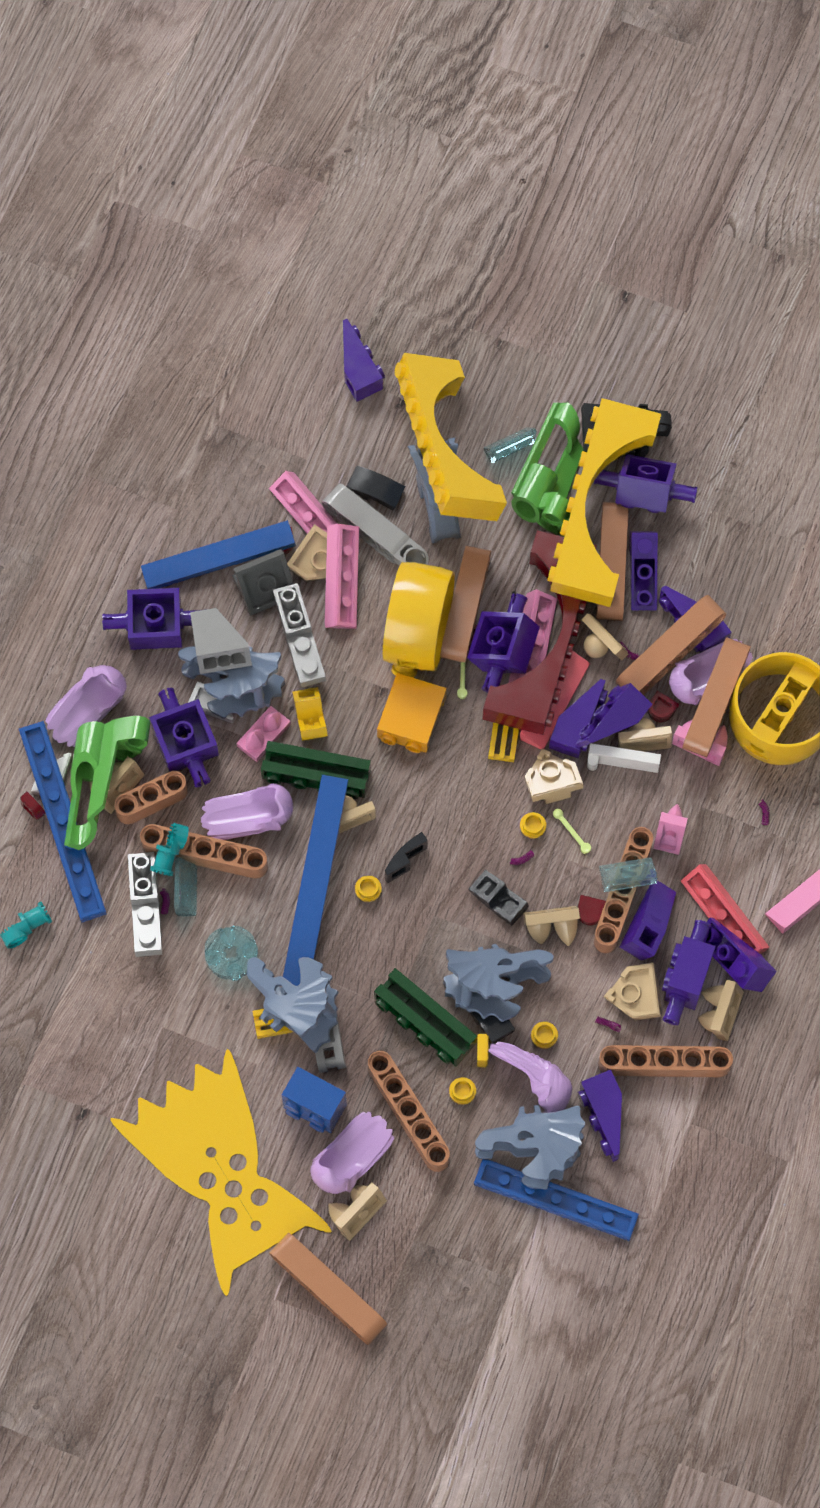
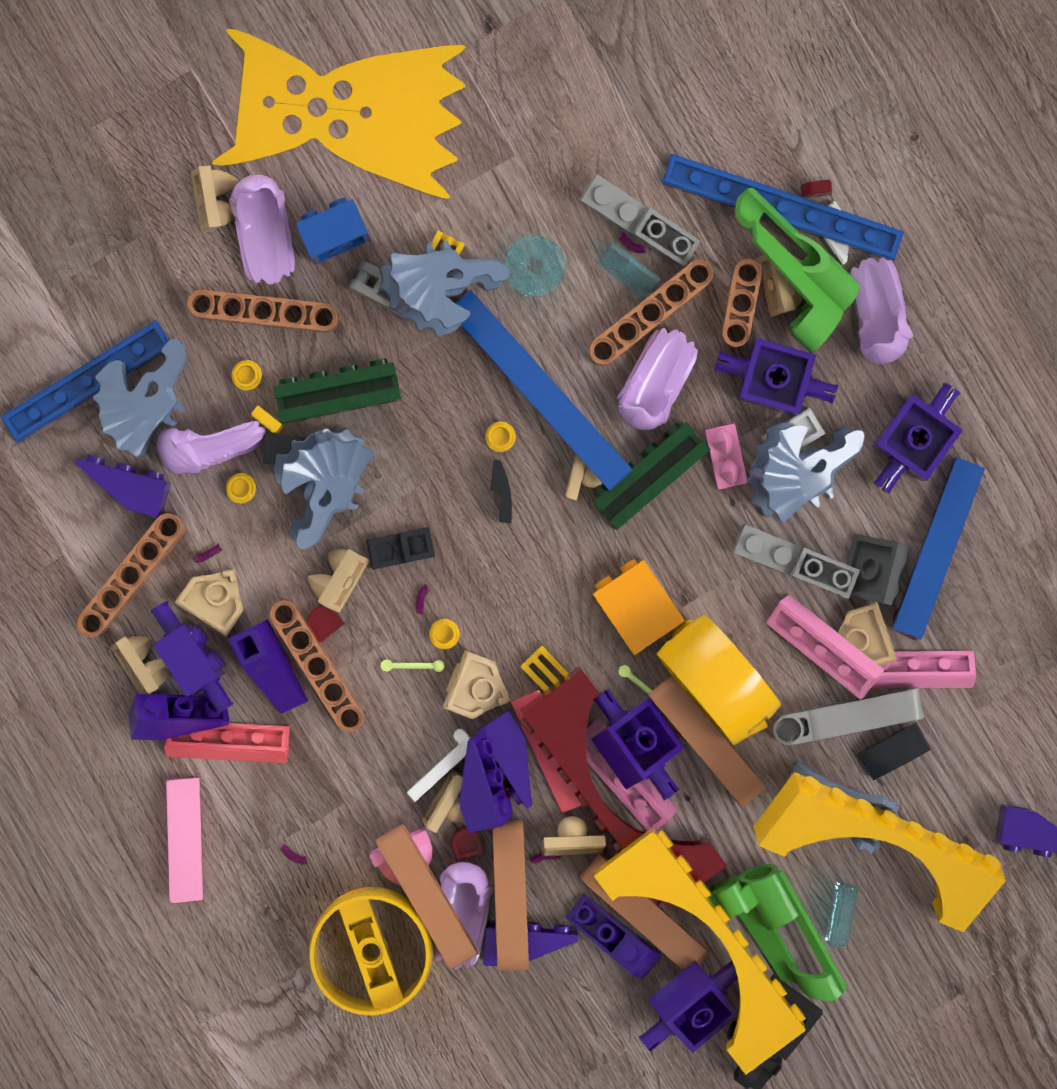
camera: 125 degrees right, 20 degrees up
(30, 920) = (705, 105): teal connector -> none
(166, 854) = (669, 273): teal connector -> none
(218, 642) = (841, 471): light grey slope -> none
(309, 713) = (711, 512): yellow slope -> none
(328, 1288) = (160, 119): nougat beam -> none
(628, 874) = (322, 677): clear light blue slope -> none
(670, 831) = (335, 753): bright pink tile -> none

